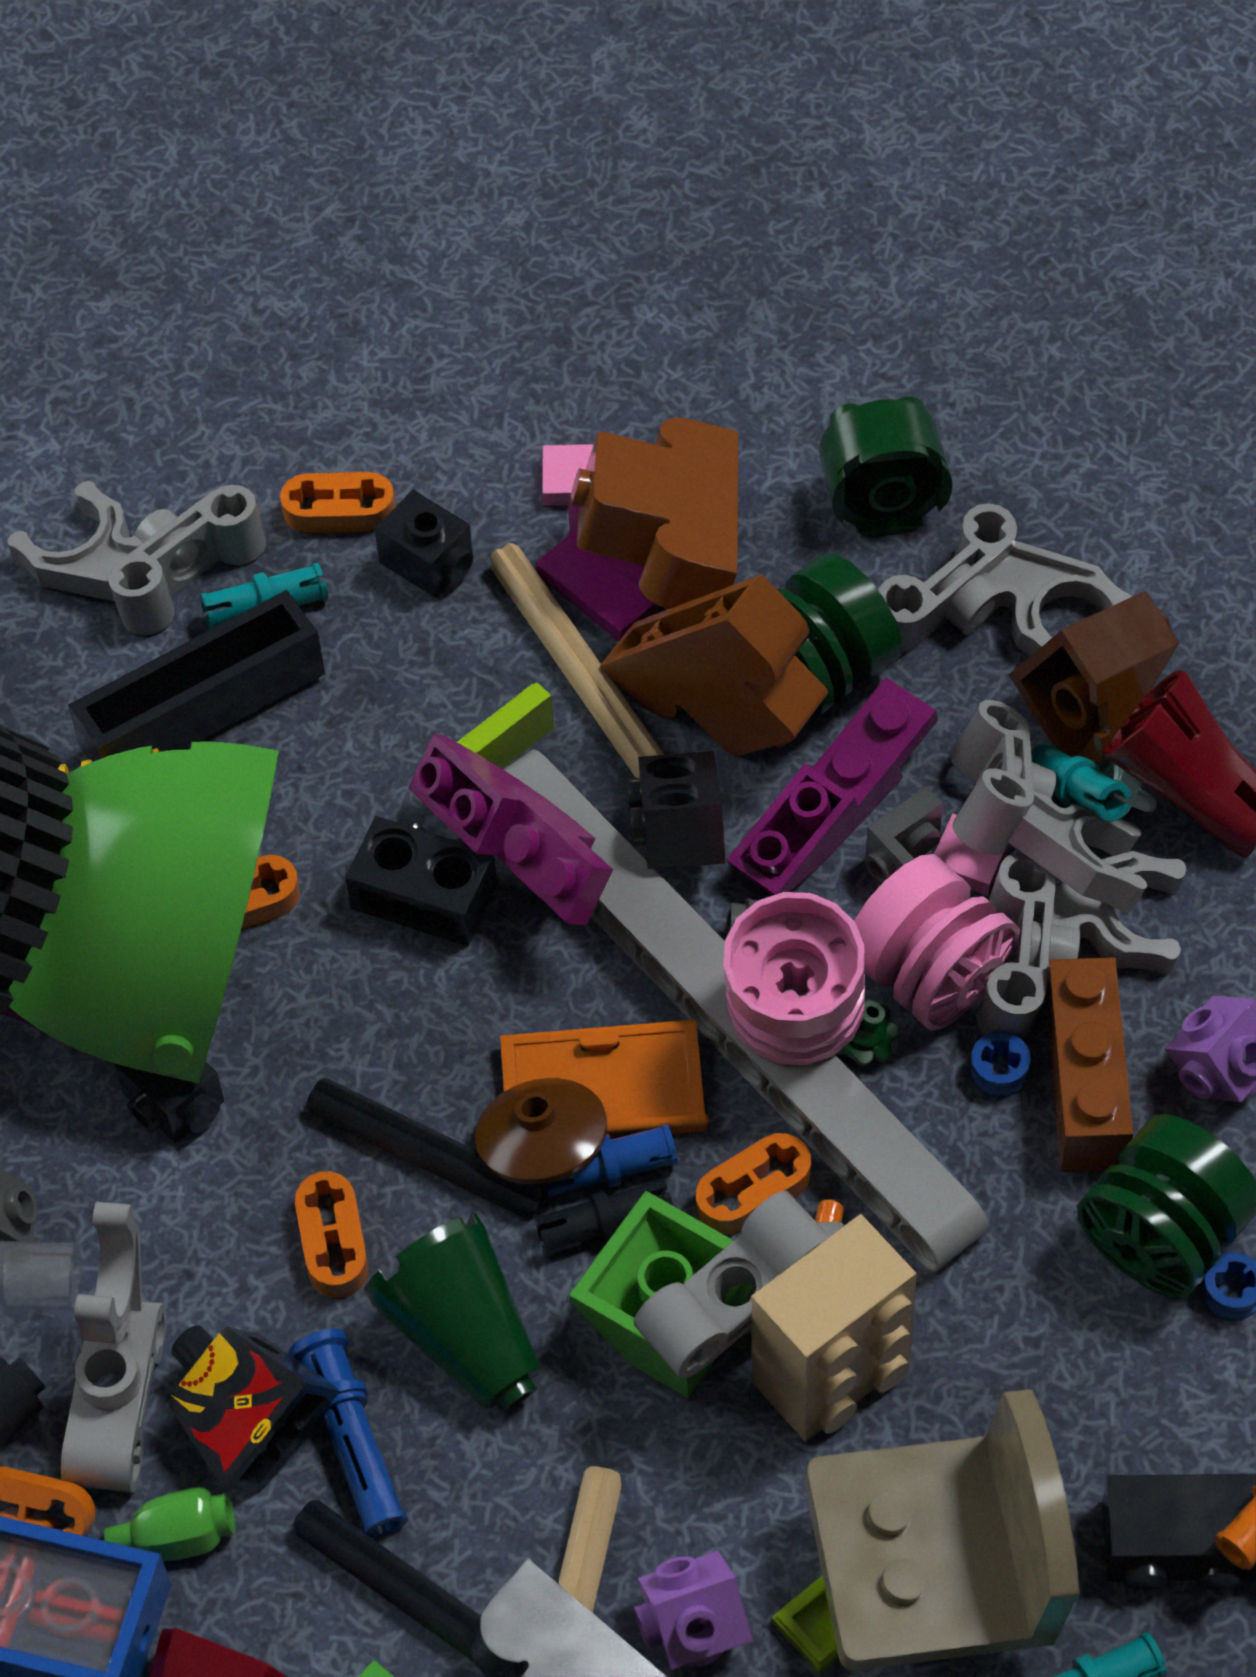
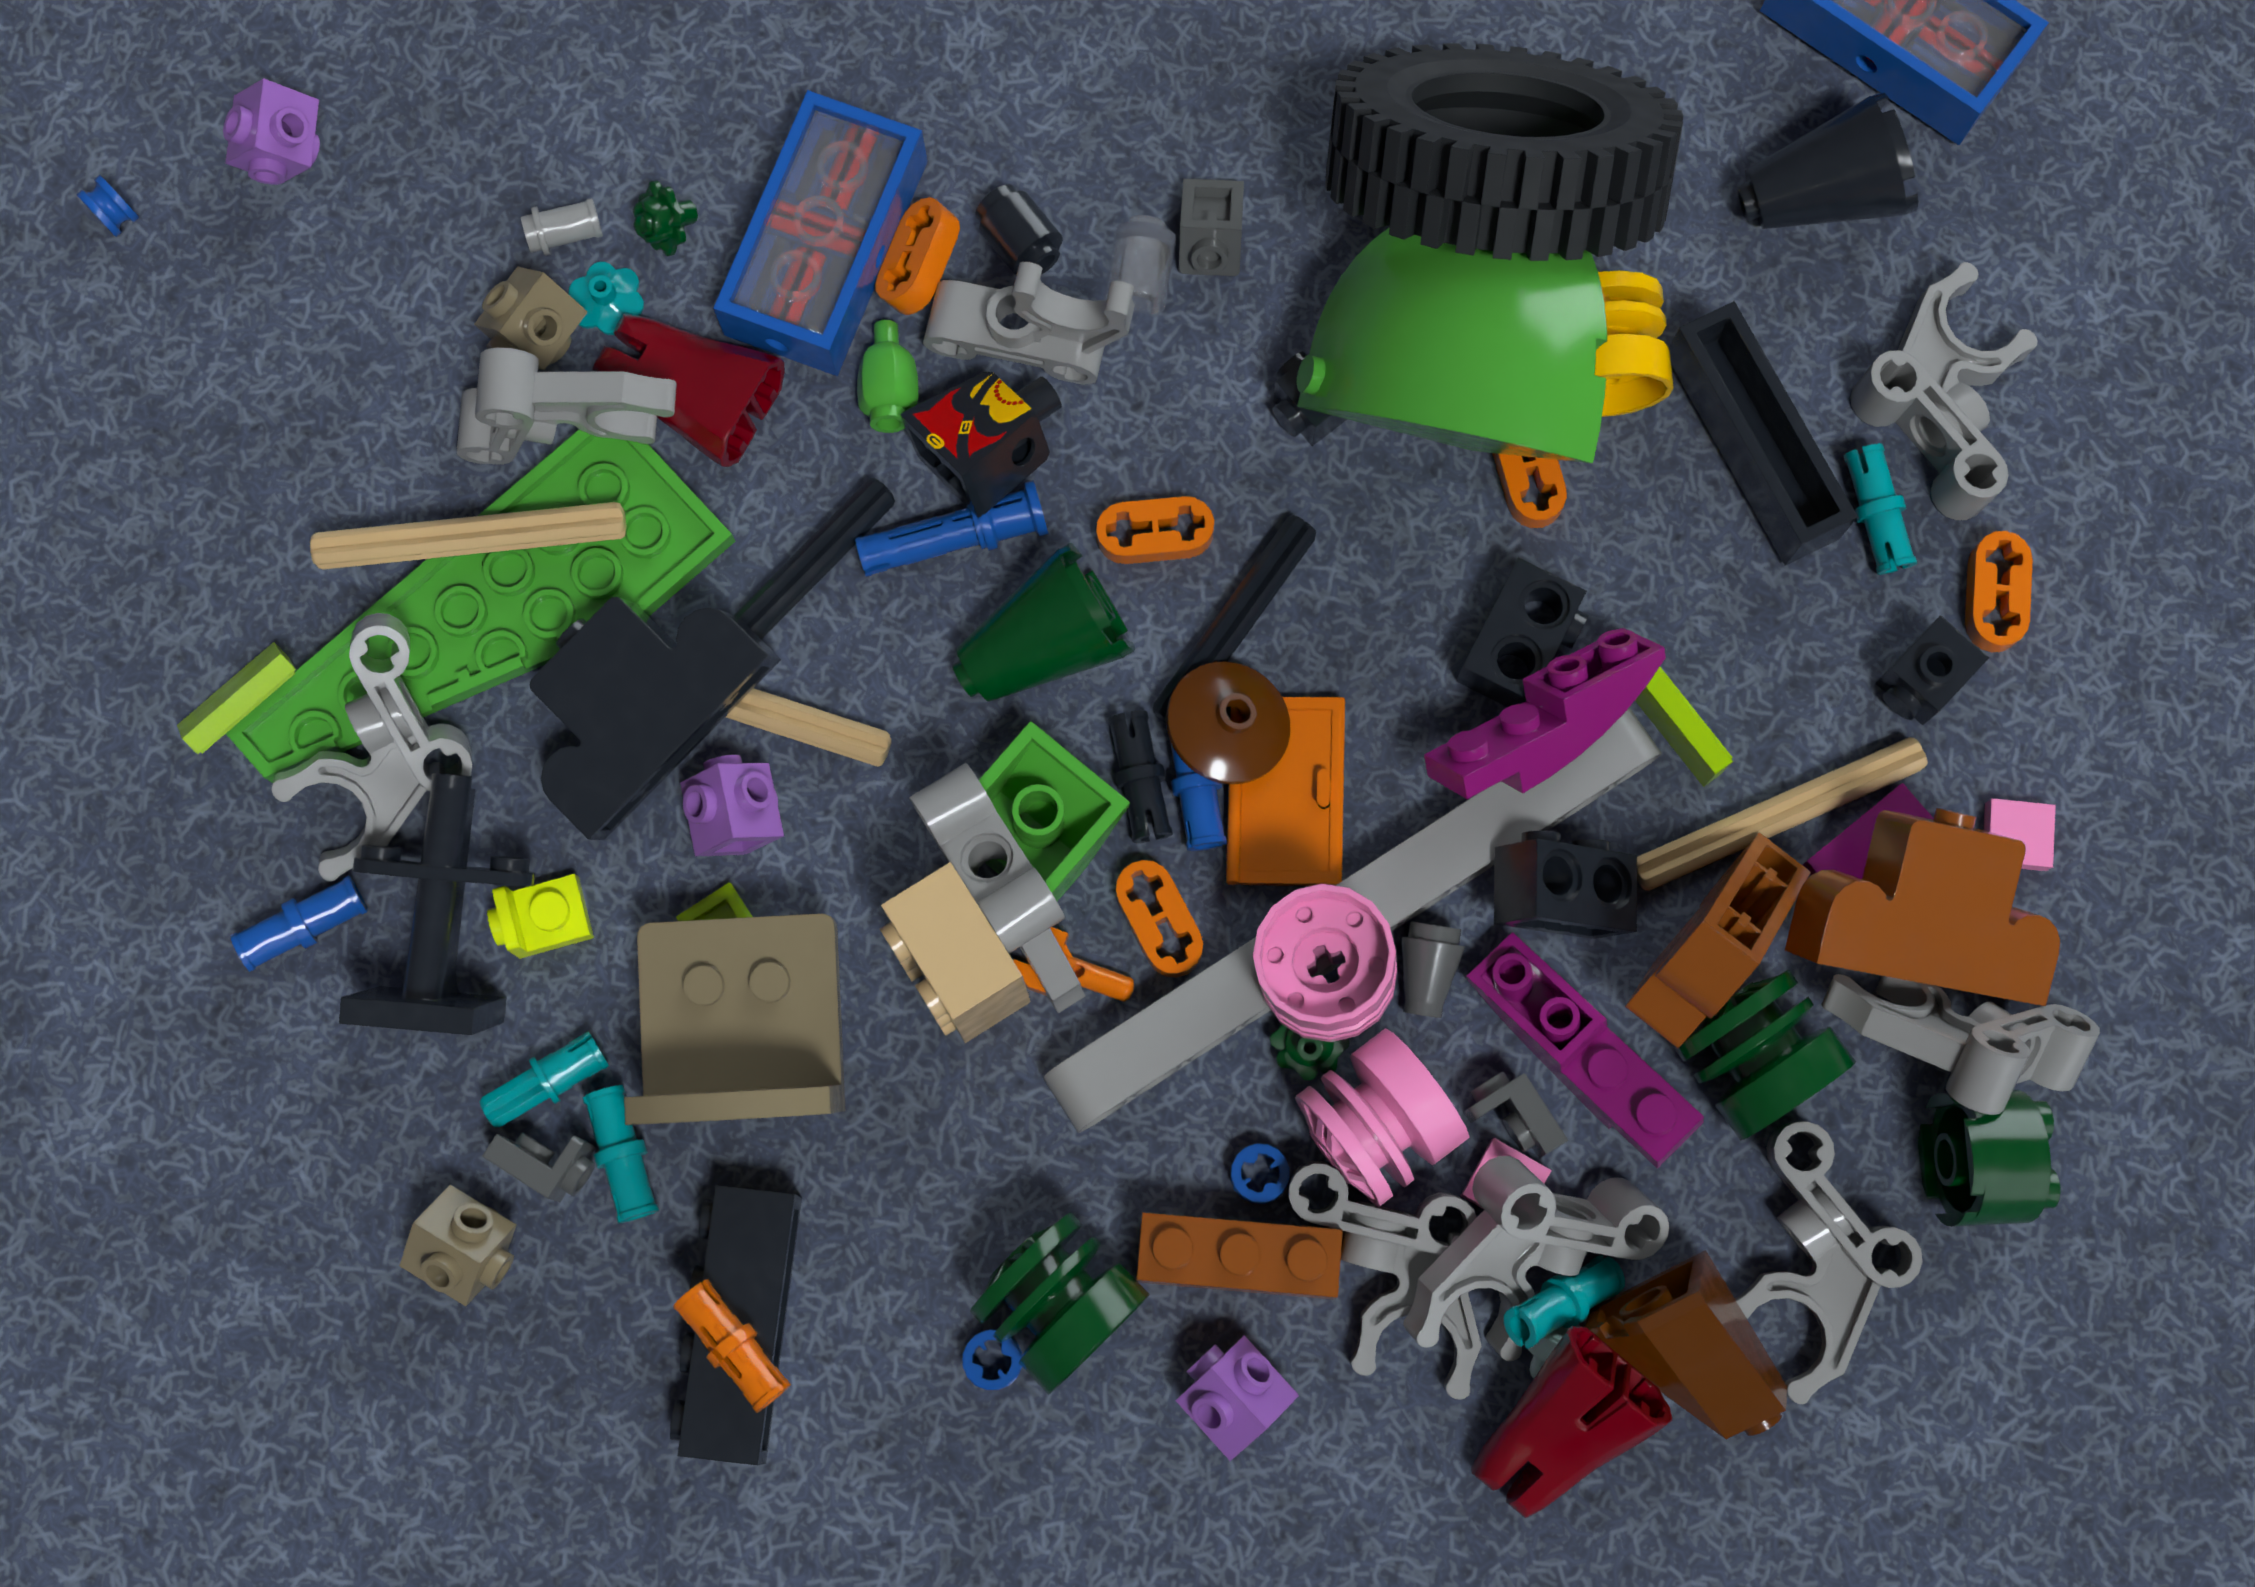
camera: 95 degrees right, 20 degrees up
(788, 459) = (1982, 1051): none -> light grey piece

